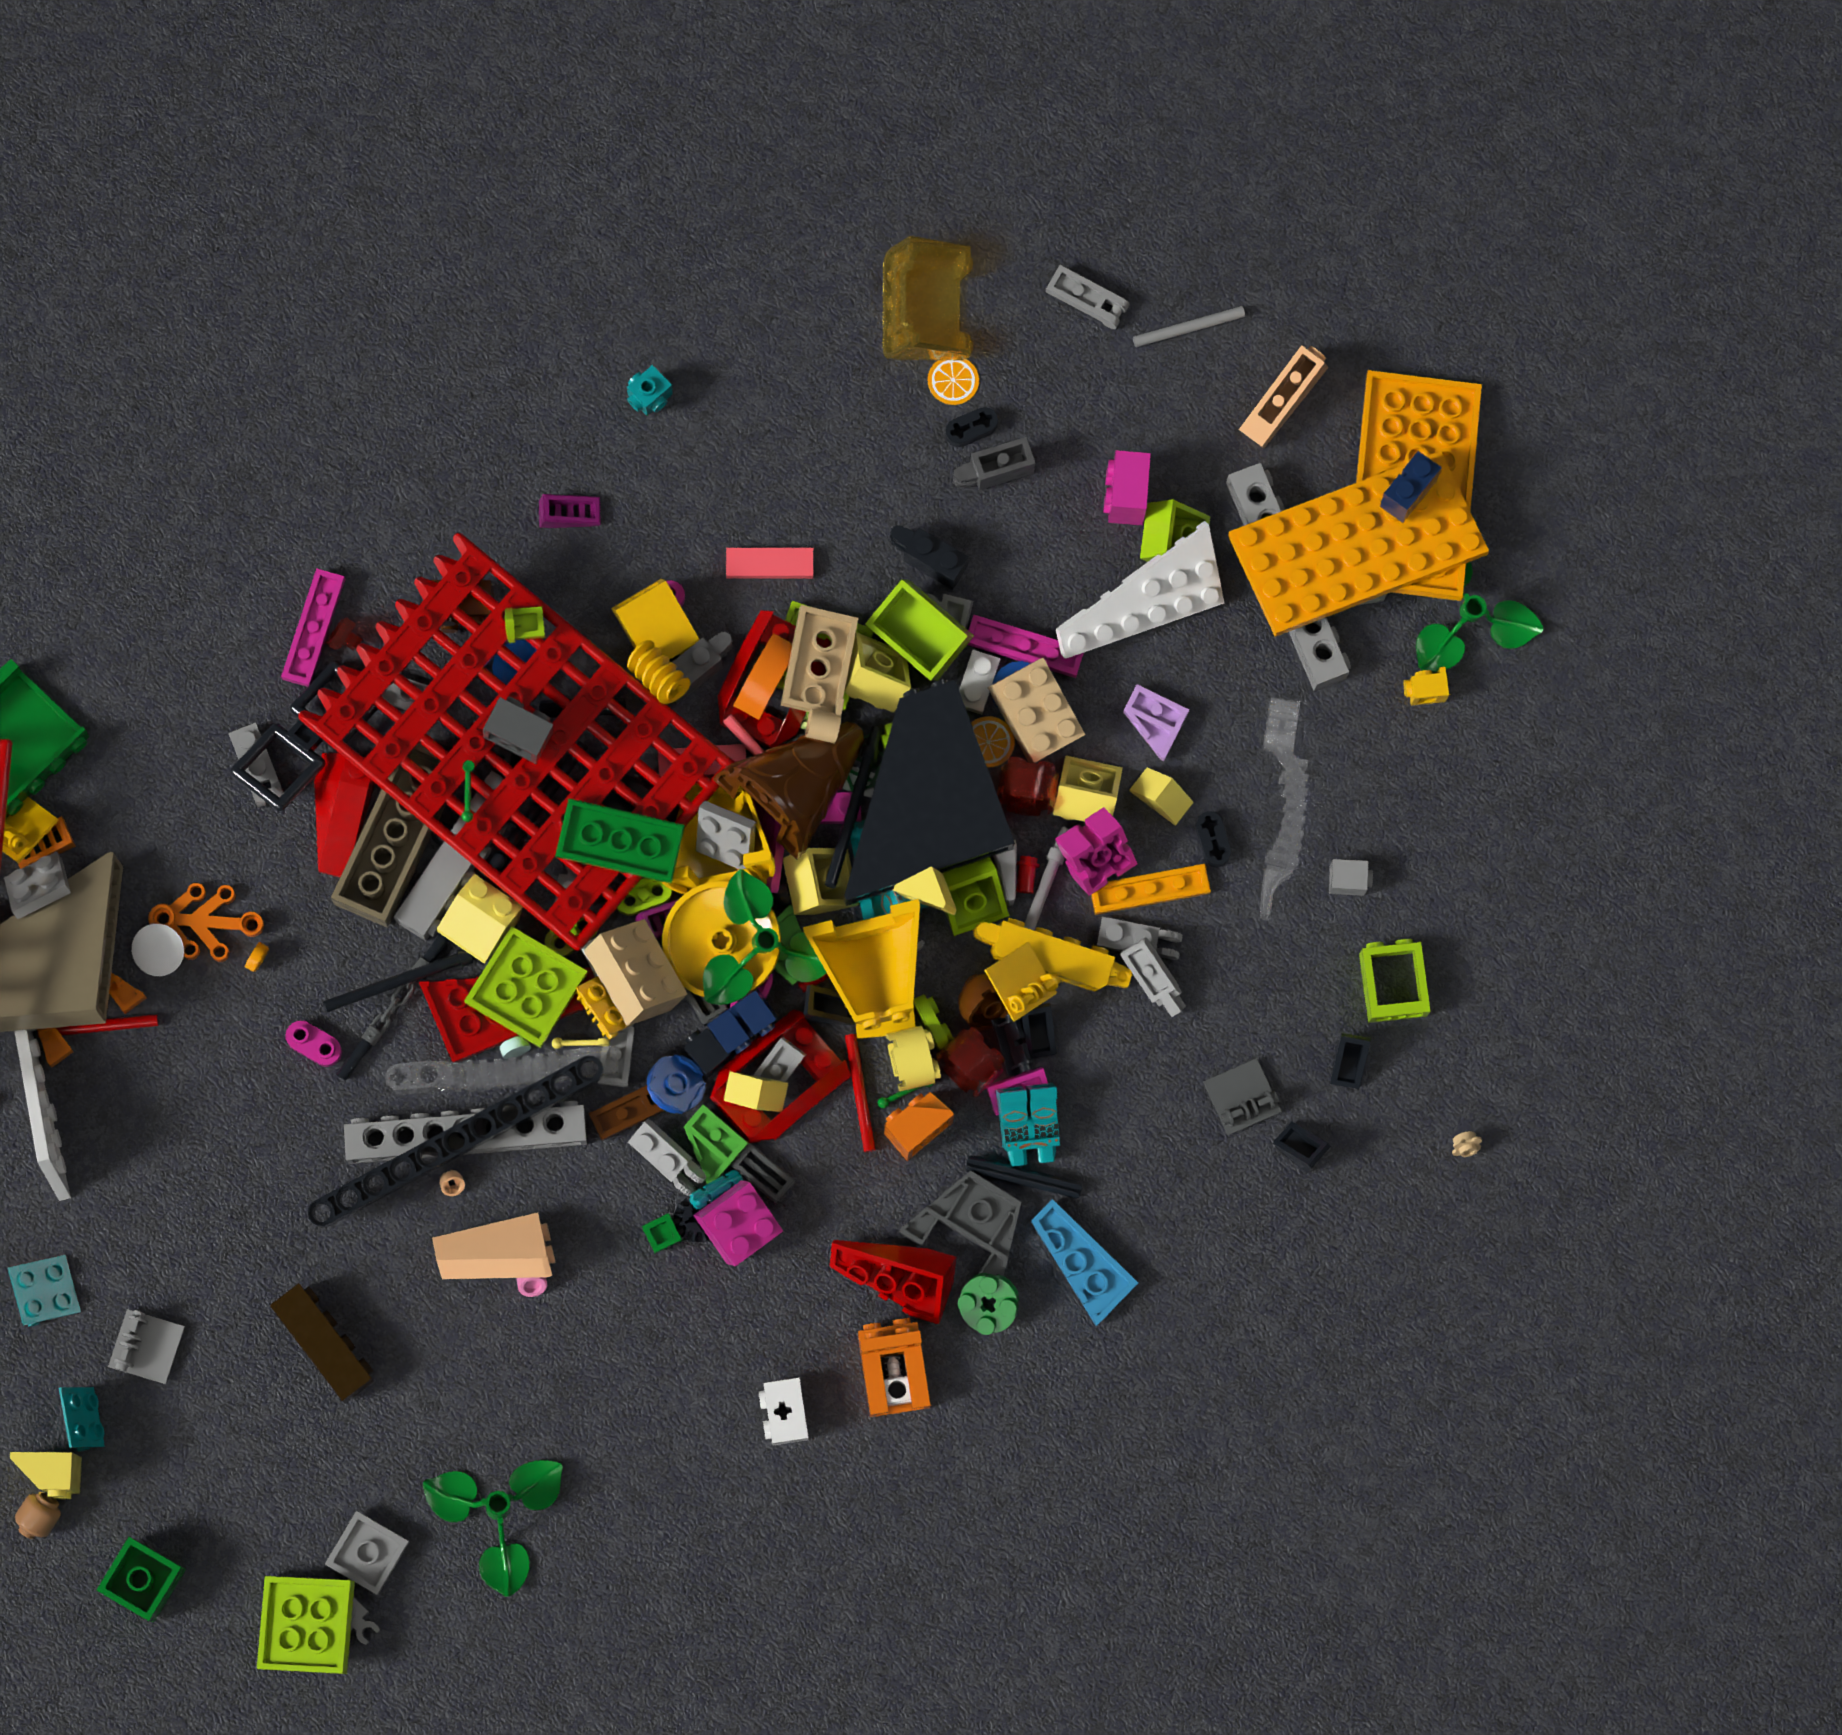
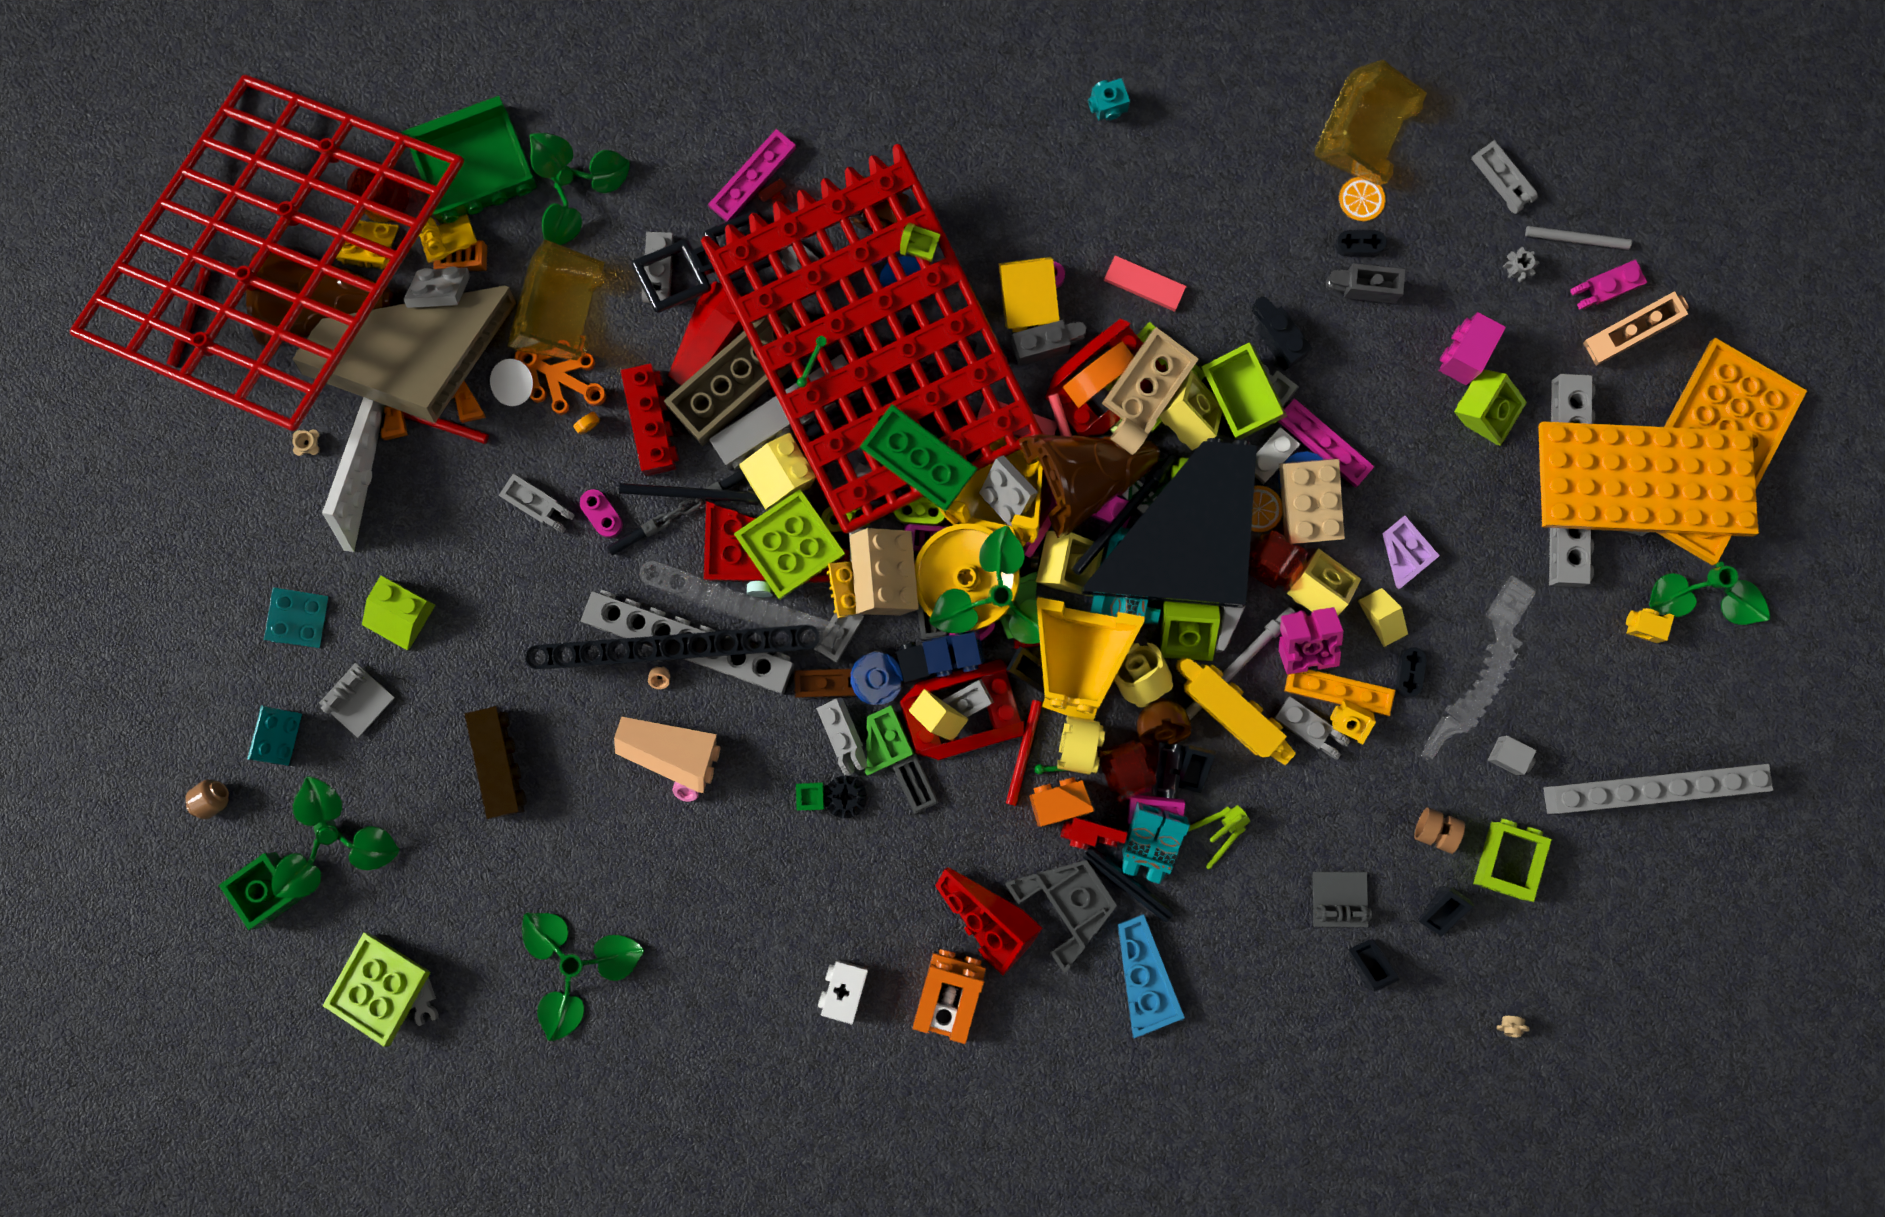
camera: 30 degrees right, 5 degrees up
(51, 1471) = (228, 770): light yellow slope -> none
(105, 704) = (550, 160): none -> green plant
(147, 1238) = (396, 612): none -> lime slope
(164, 1458) = (318, 806): none -> green plant
(167, 847) = (555, 302): none -> clear yellow windscreen
(239, 1062) = (533, 502): none -> light grey hinge
(320, 925) = (648, 419): none -> red brick
(367, 1553) = (454, 951): light grey plate -> none
(518, 729) = (873, 327): dark grey brick -> none
(558, 1042) = (796, 601): light yellow hinge -> none
(569, 501) = (997, 179): magenta slope -> none
(657, 673) = (1012, 332): yellow piece -> none
(714, 1189) = (870, 780): teal axle -> none
(738, 1223) = (875, 818): dark pink brick -> none
(927, 1009) = (1110, 709): lime plate -> none
(929, 888) = (1157, 612): light yellow slope -> none
(944, 959) = (1143, 675): none -> light yellow brick
(955, 1142) = (1086, 833): none -> red plate
(987, 1320) = (1043, 990): green plate -> none
(1022, 981) = (1200, 724): yellow hinge -> none
(1026, 874) = (1242, 633): red pin -> none
(1100, 1065) = (1233, 821): none -> lime plant
(1140, 387) = (1516, 269): none -> light grey gear
(1153, 976) = (1311, 765): light grey hinge -> none
(1157, 593) = (1454, 447): white wing -> none
(1166, 904) = (1348, 711): none -> yellow brick
(1242, 360) = (1611, 284): none -> dark pink hinge
(1298, 982) = (1430, 826): none -> medium nougat wheel
(1410, 487) = (1717, 450): dark blue piece -> none
(1505, 846) = (1658, 789): none -> light grey brick

